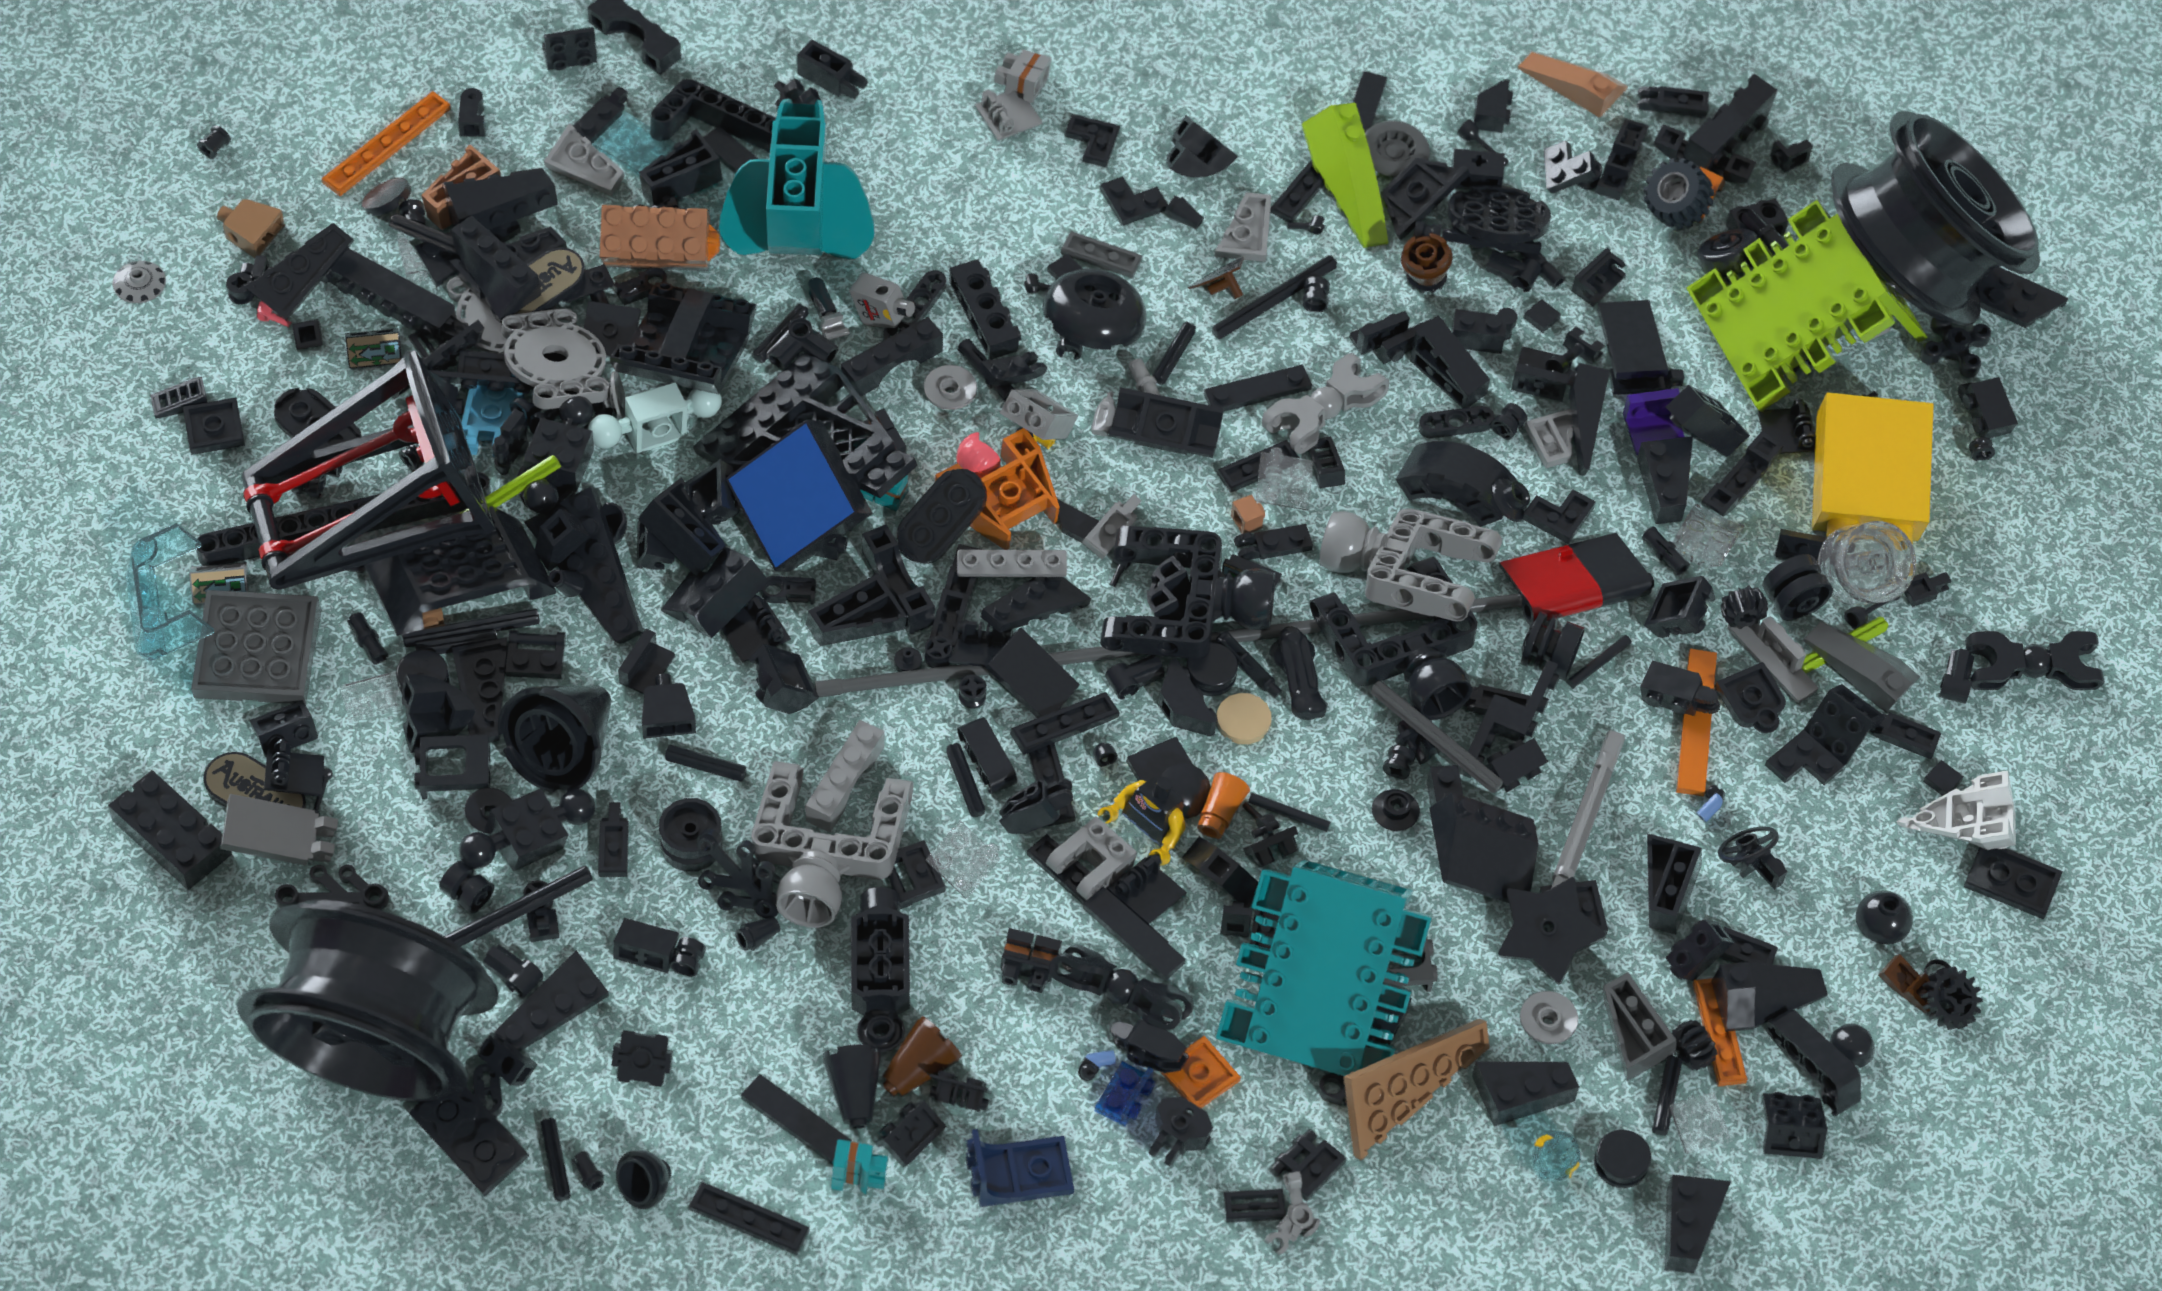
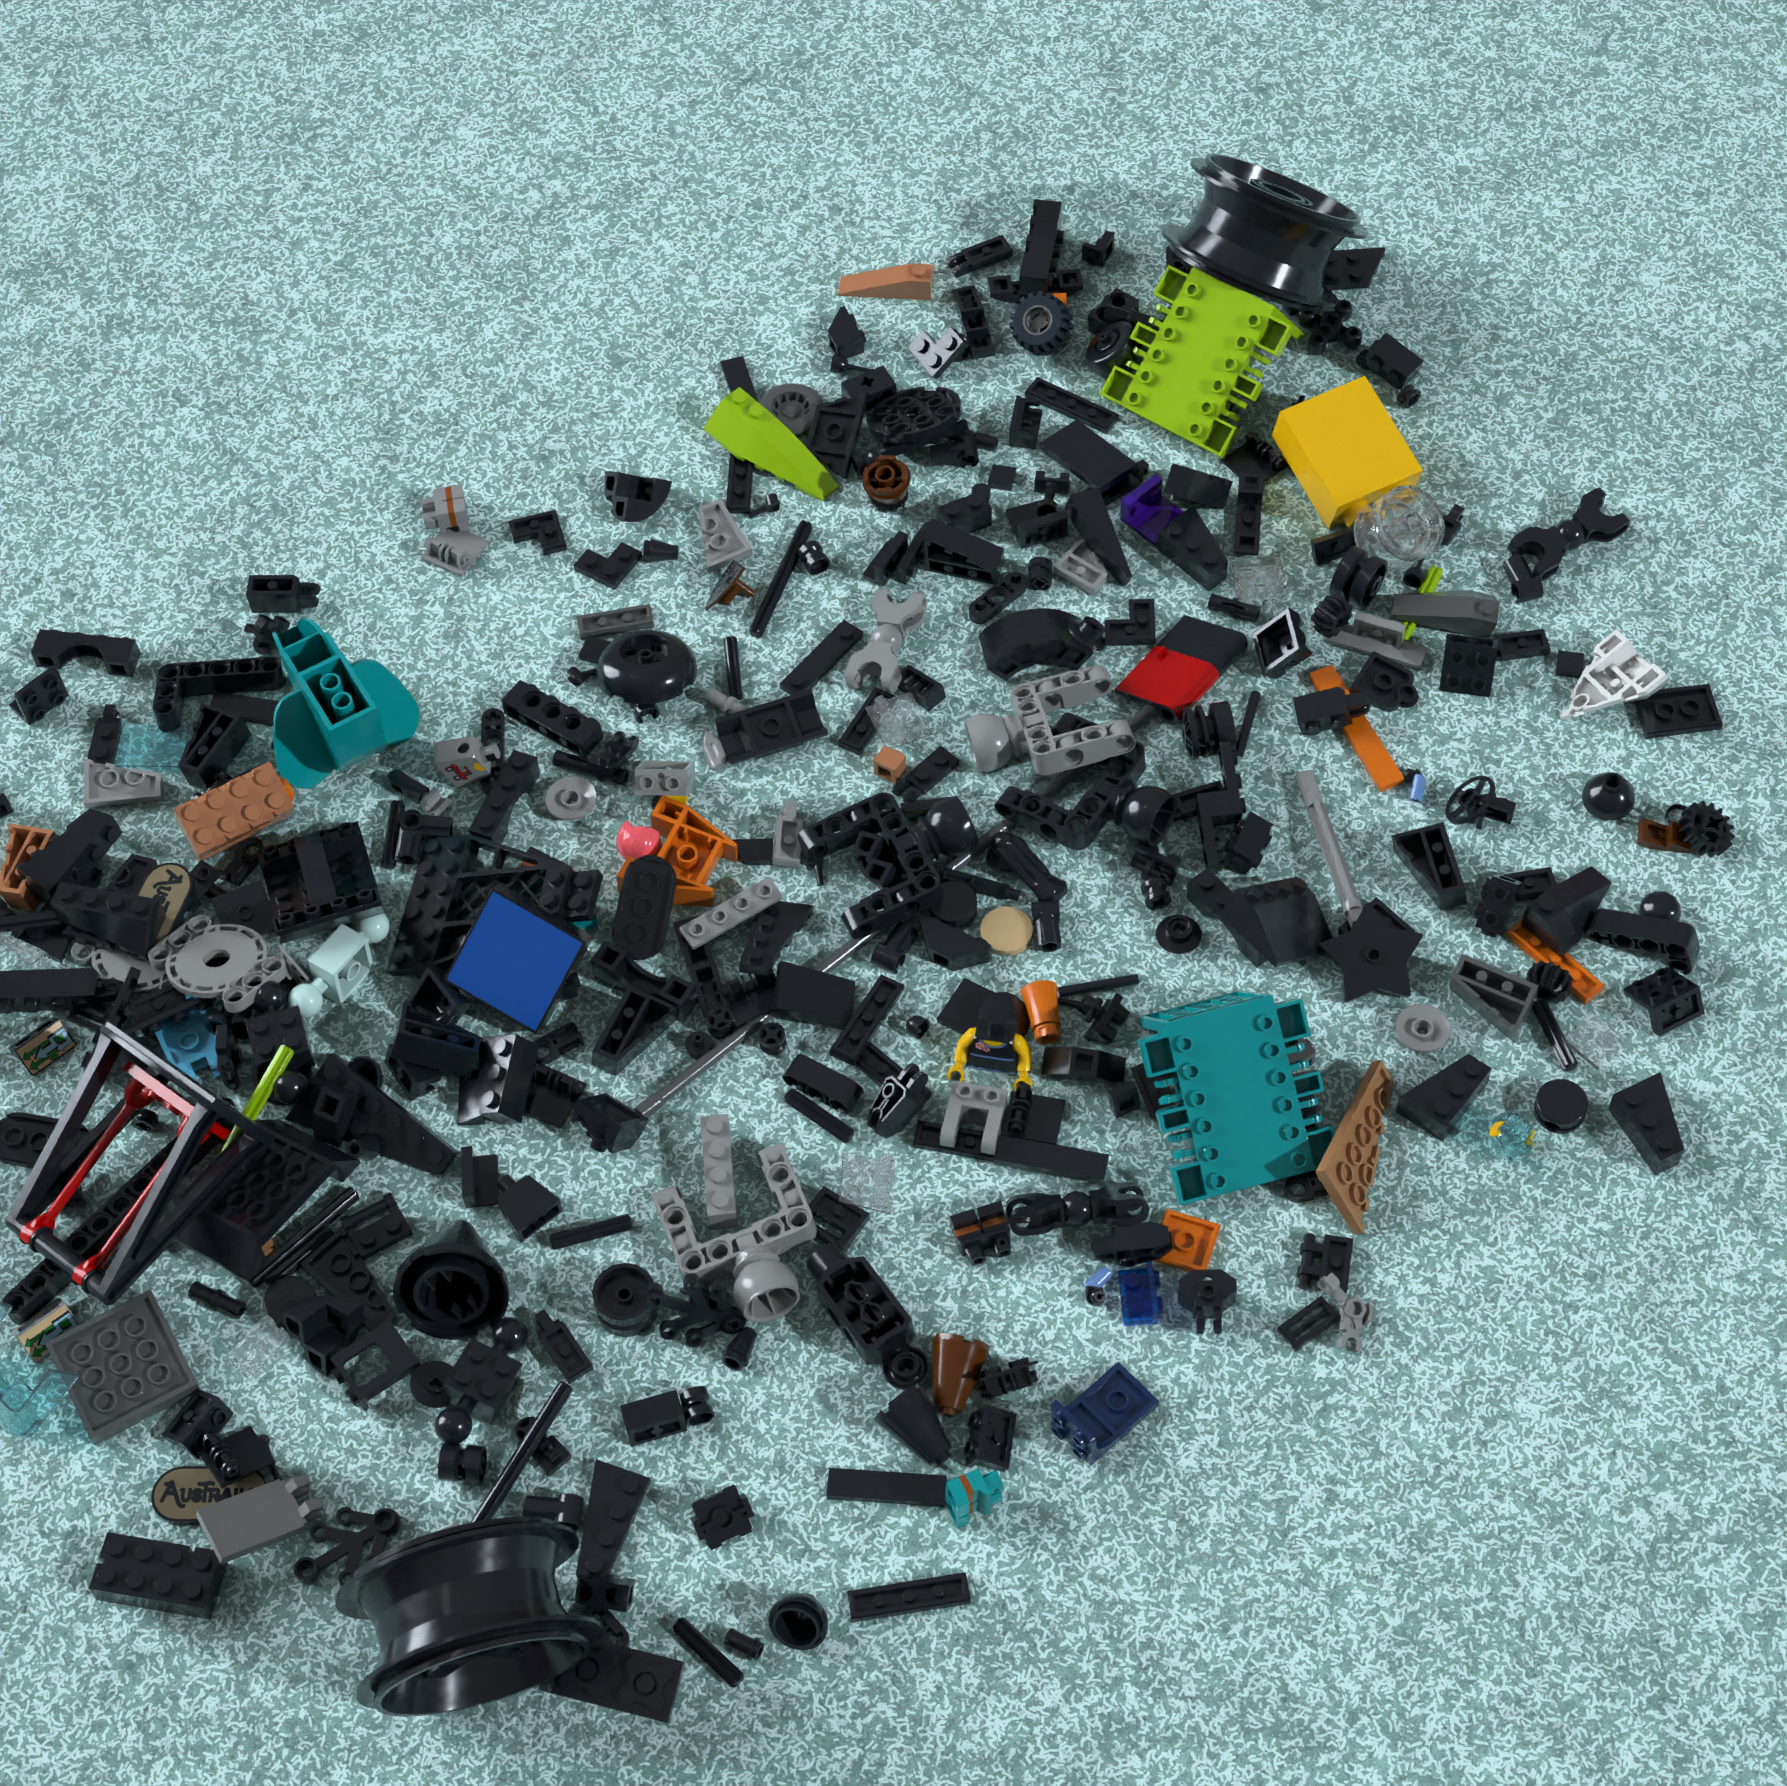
camera: 25 degrees left, 0 degrees up
(1282, 732) = (1047, 920): none -> black piece
(1436, 736) = (1175, 854): dark grey axle -> none
(1656, 285) = (1072, 405): none -> black tile
(1805, 753) = (1456, 704): black plate -> none

